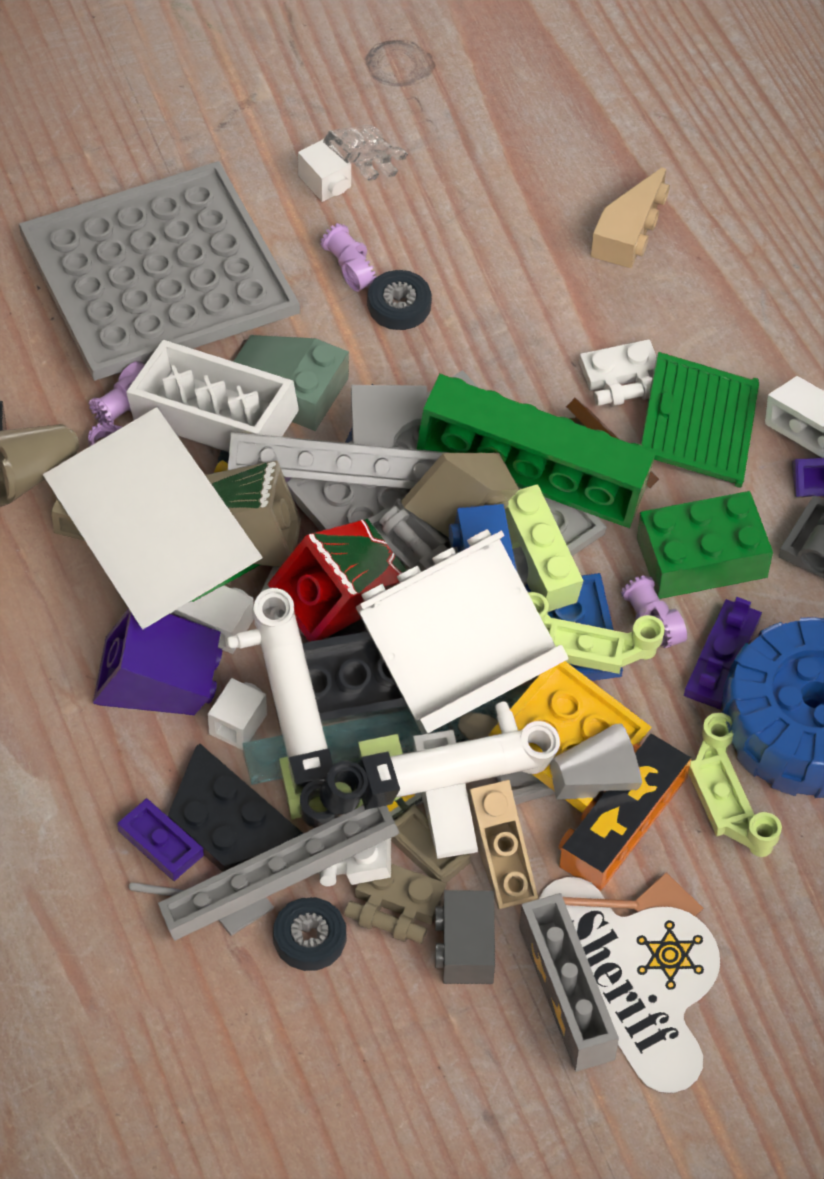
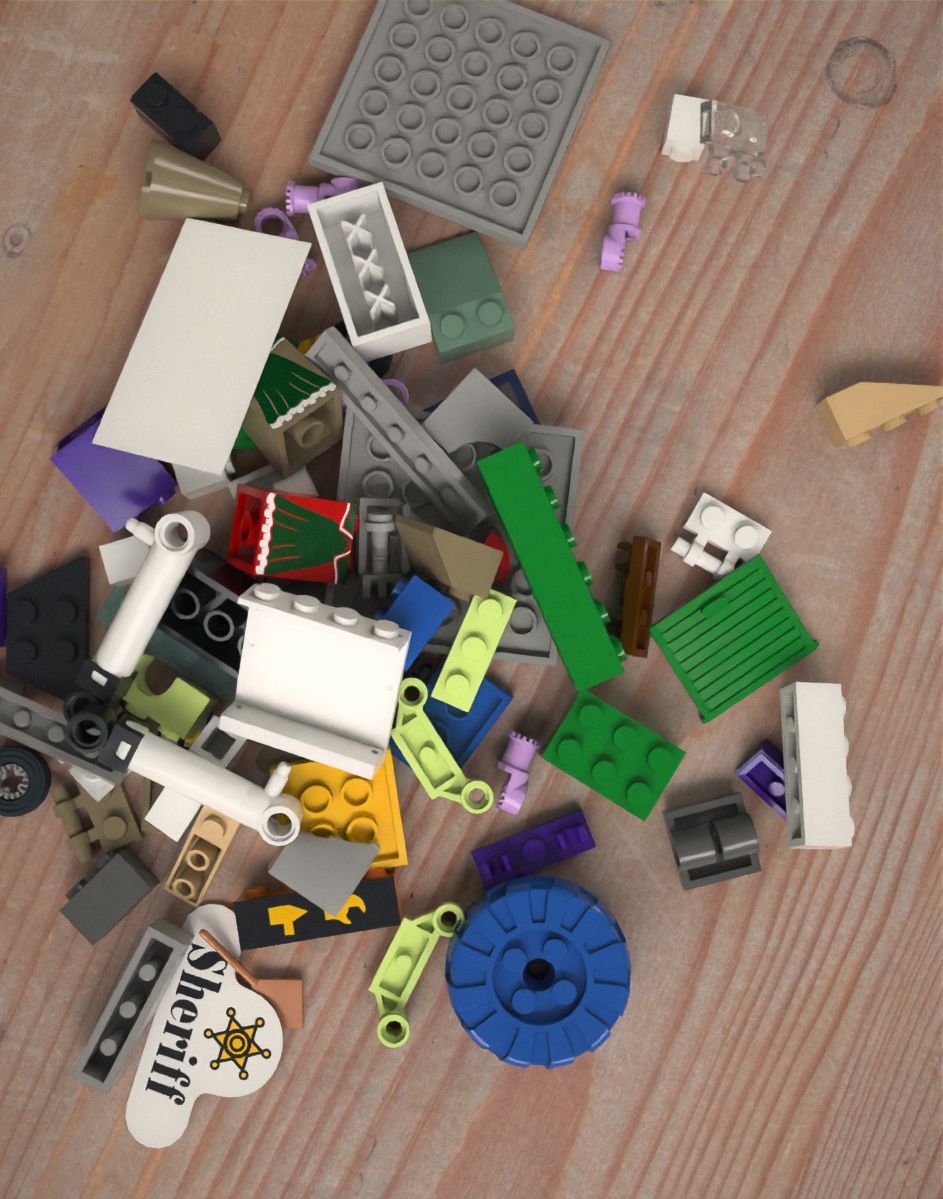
camera: 45 degrees right, 30 degrees up
(399, 285) = (634, 293): black bush -> none

